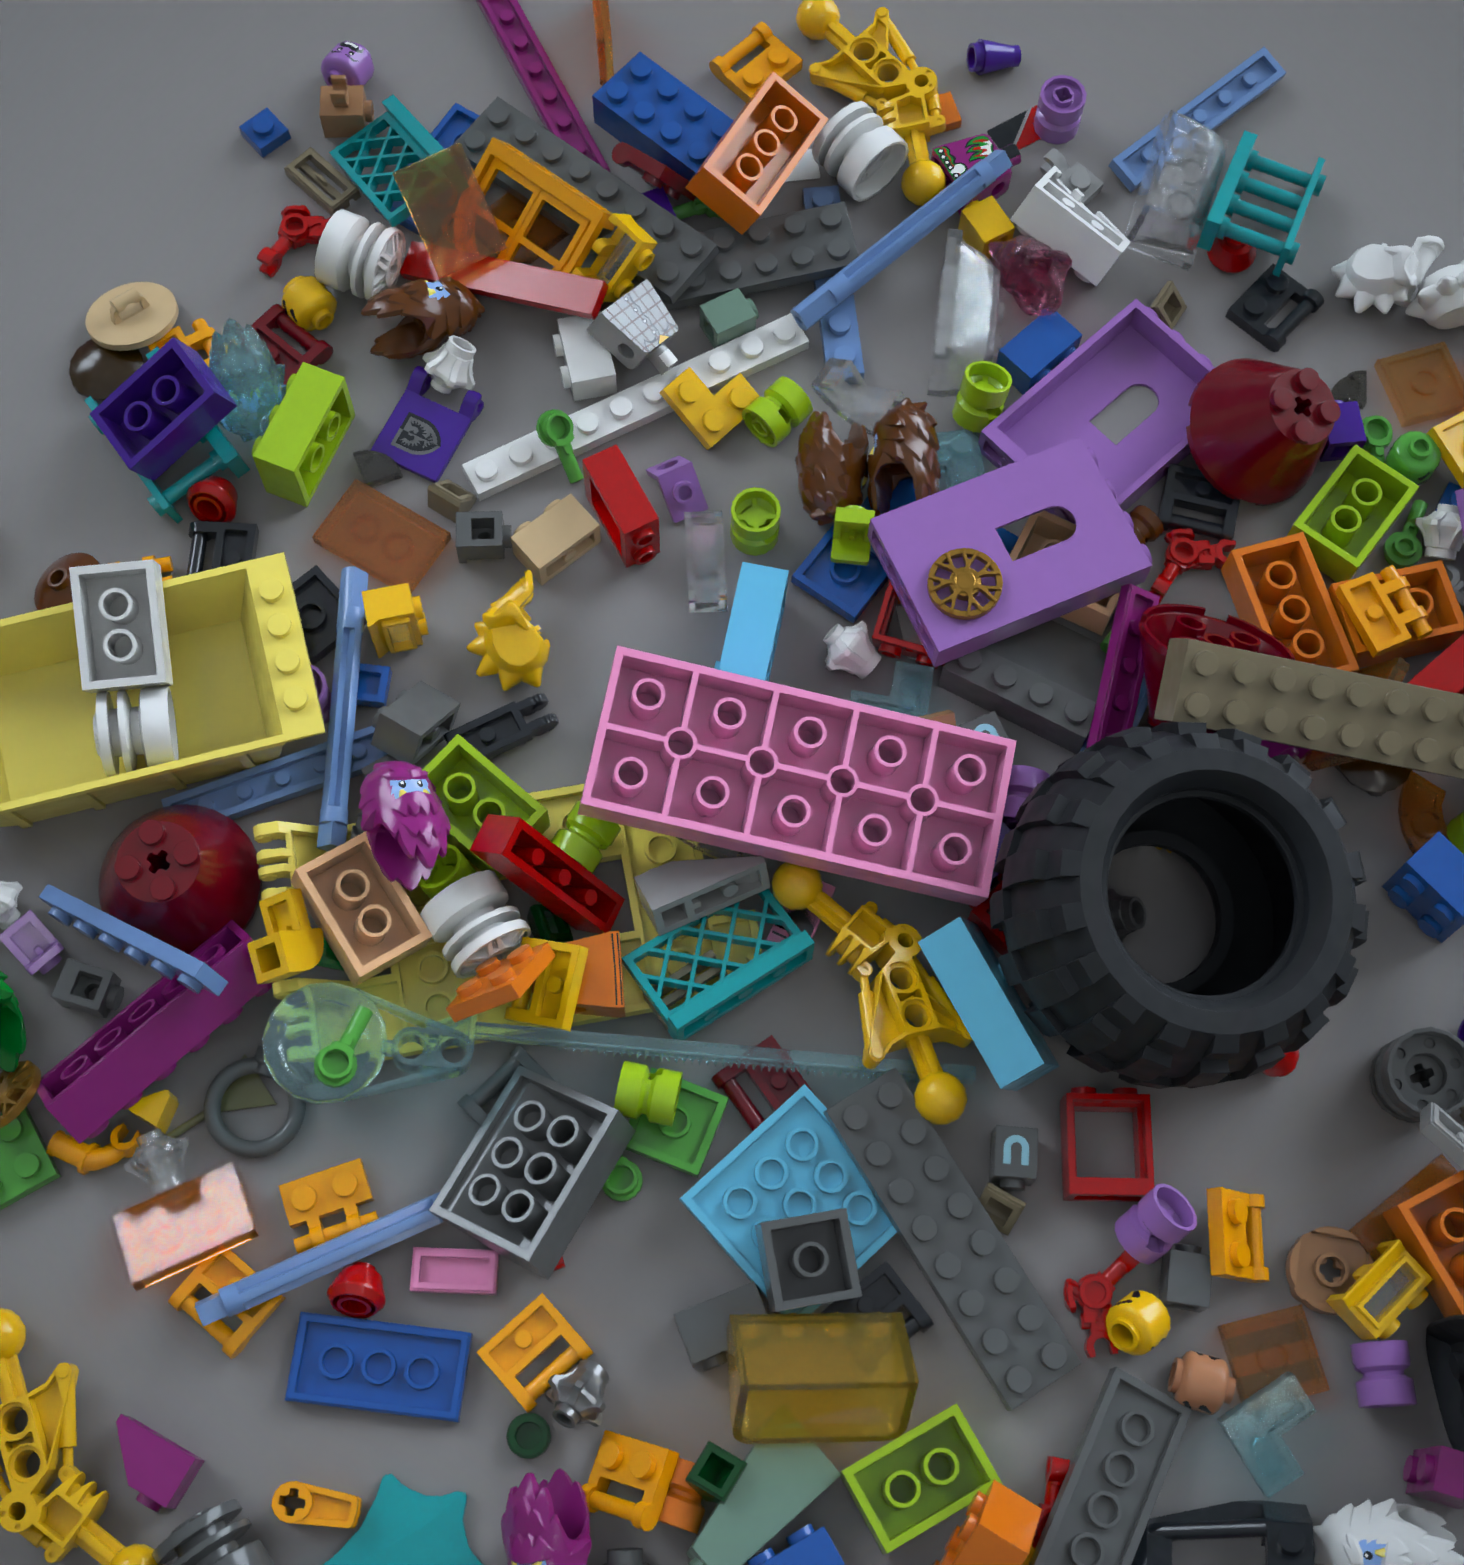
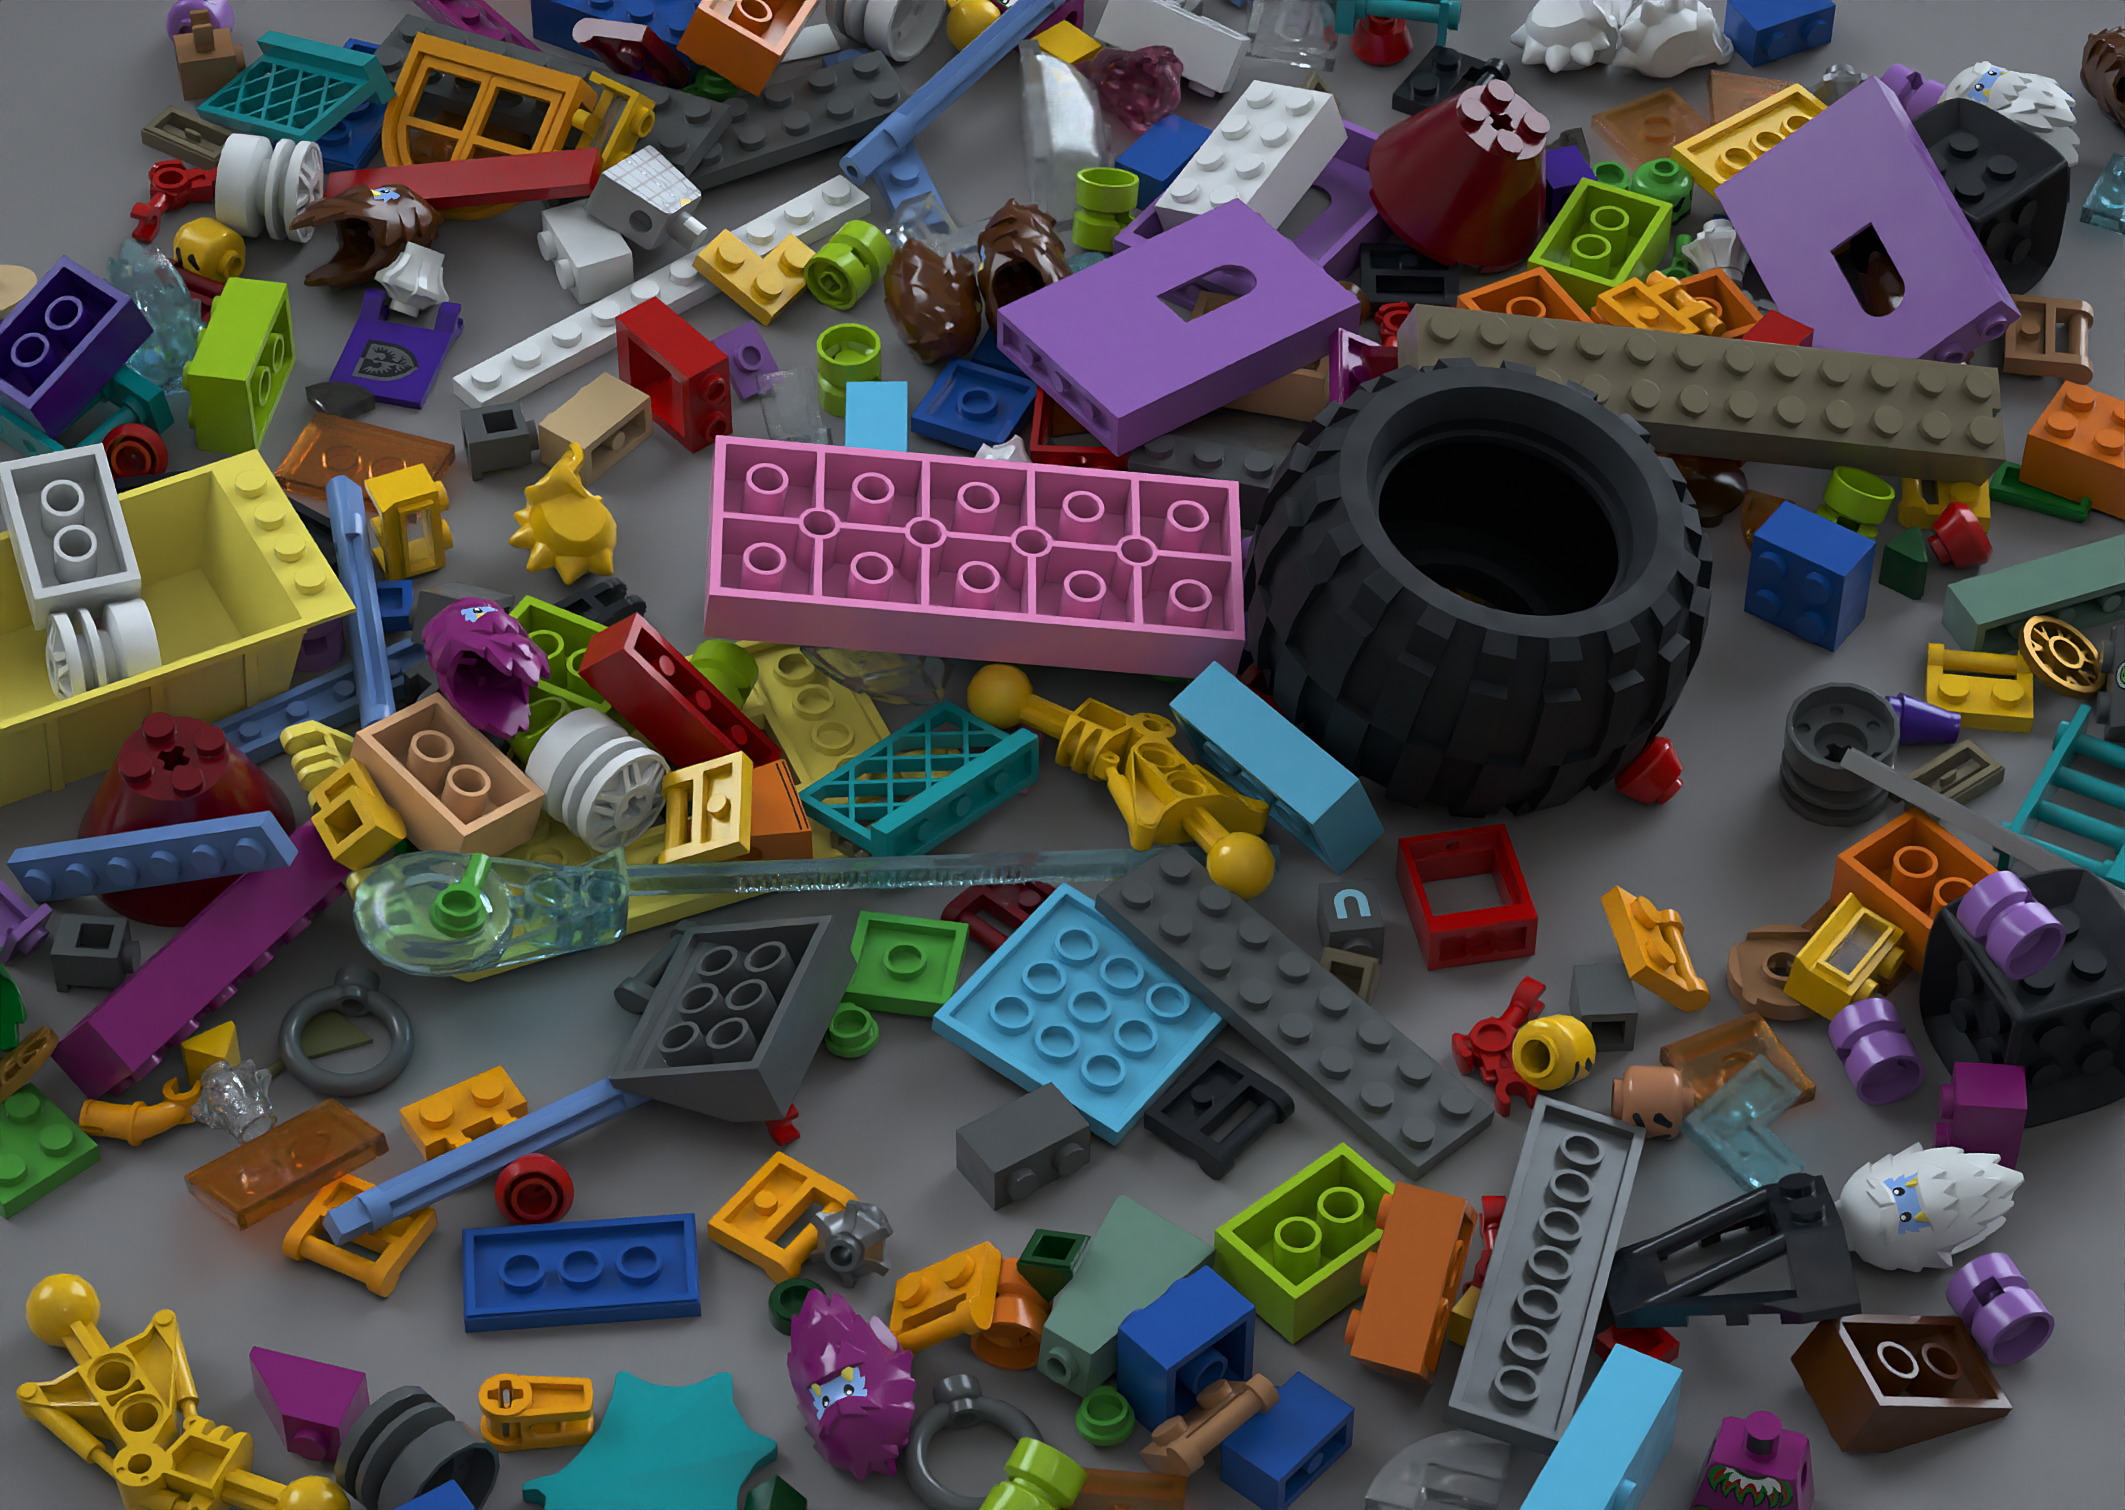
camera: 10 degrees left, 25 degrees down
(264, 132) = (104, 103): blue plate -> none
(449, 210) = (380, 111): clear orange tile -> none
(449, 498) = (439, 417): dark tan slope -> none
(454, 1271) = (655, 1162): bright pink tile -> none
(500, 981) = (660, 788): orange plate -> none
(556, 431) = (571, 316): bright green plate -> none
(648, 1093) = (868, 915): lime wheel -> none
(695, 888) = (876, 710): light grey slope -> none
(728, 317) = (758, 186): sand green brick -> none
(808, 1260) = (1114, 1035): dark grey brick -> none
(819, 1377) = (1161, 1144): clear yellow windscreen -> none
(850, 537) = (975, 353): lime bracket -> none
(964, 583) = (1132, 348): pearl gold wheel -> none
(1102, 382) = (1261, 153): none -> white brick
(1155, 1224) = (1550, 920): medium lavender wheel -> none

